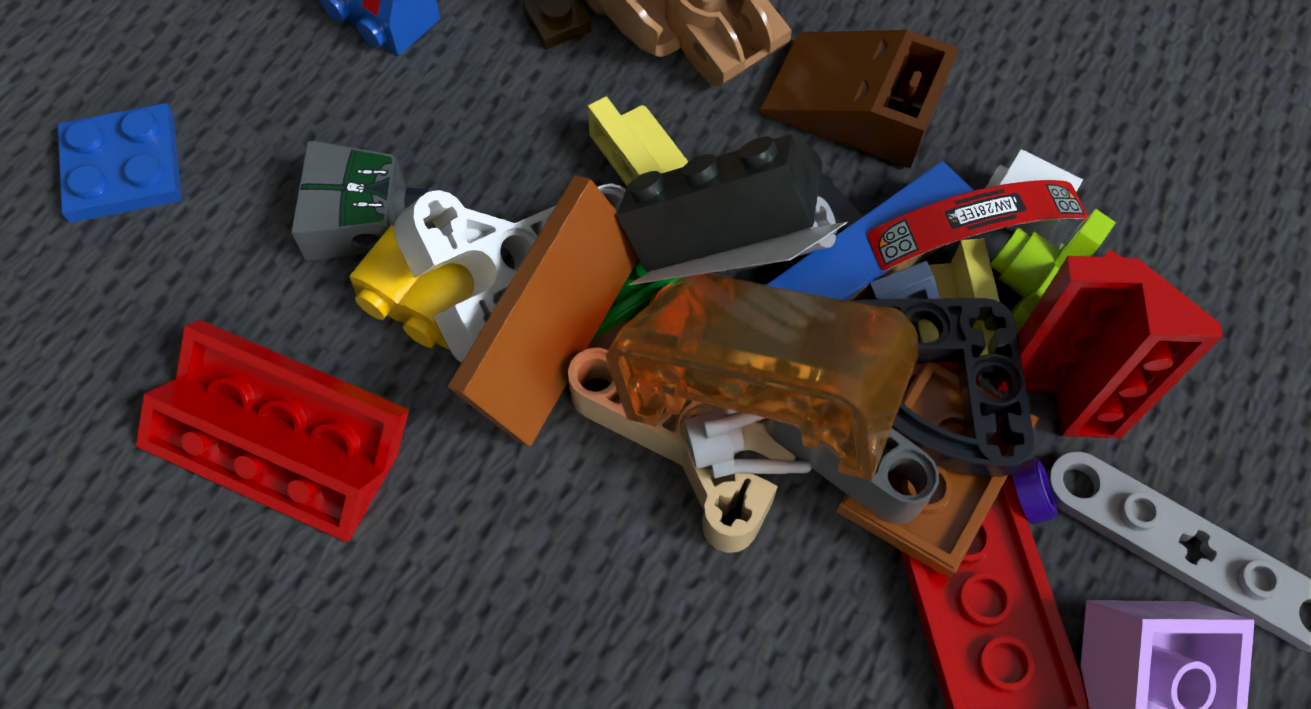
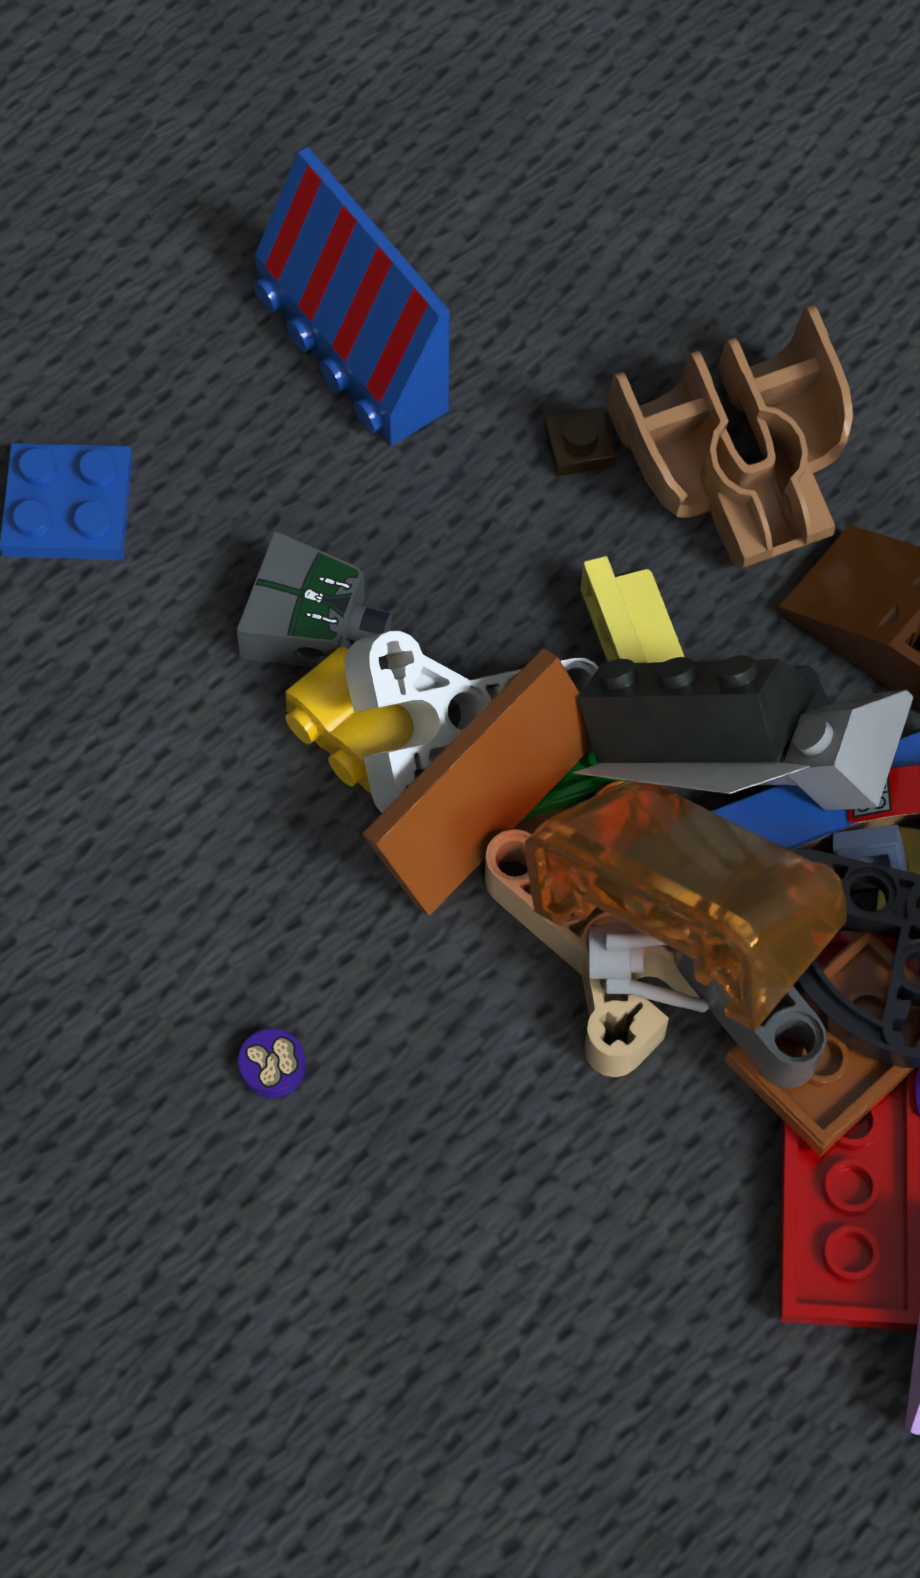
camera: 15 degrees right, 0 degrees up
(273, 429) = (173, 831): red slope -> none
(415, 625) = (272, 1063): none -> tile
(873, 201) = (849, 749): none -> light grey slope

